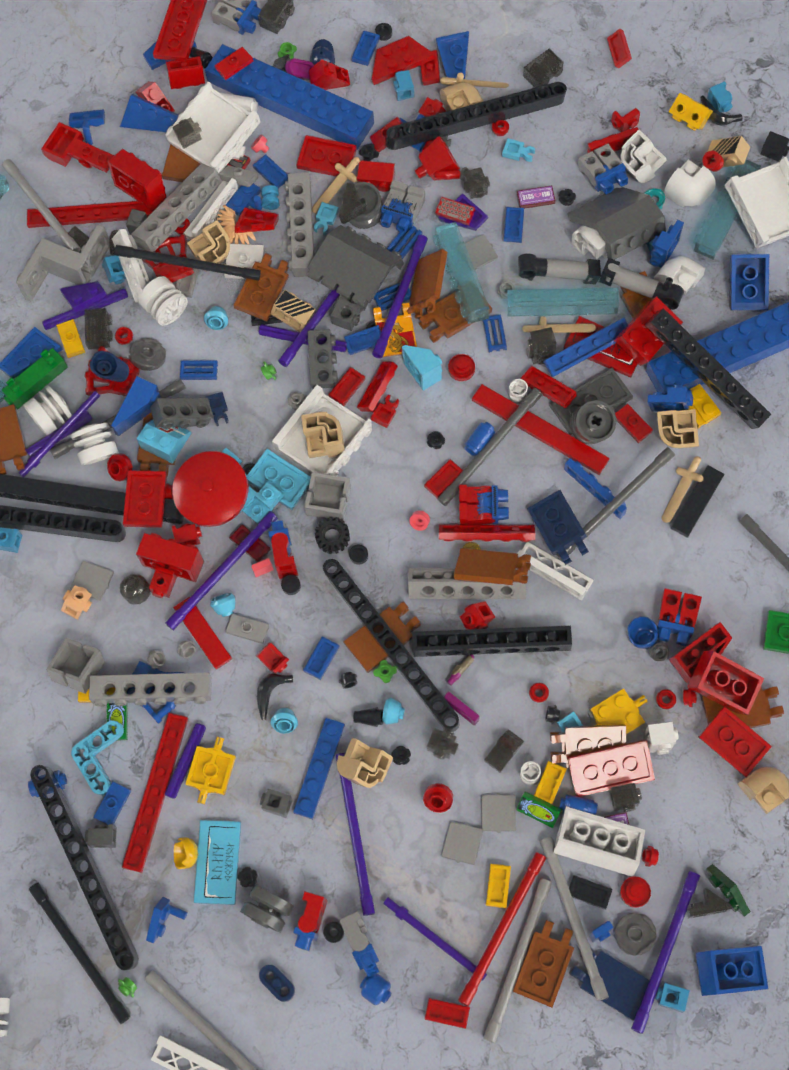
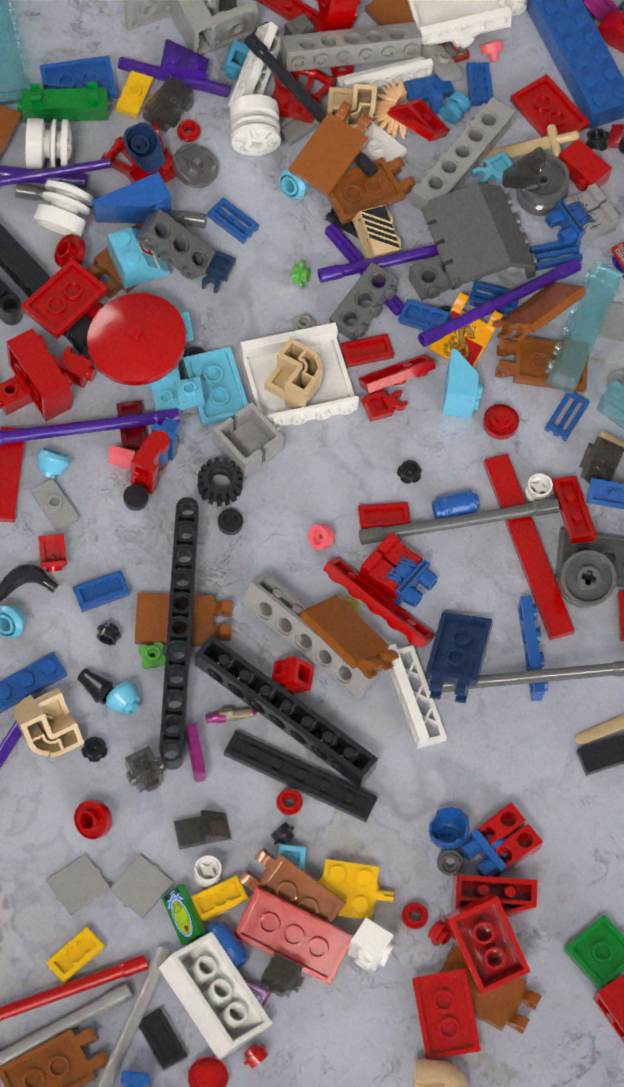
camera: 25 degrees right, 5 degrees down
(225, 282) = (331, 150): none -> dark orange tile
(531, 672) = (300, 776): none -> black tile

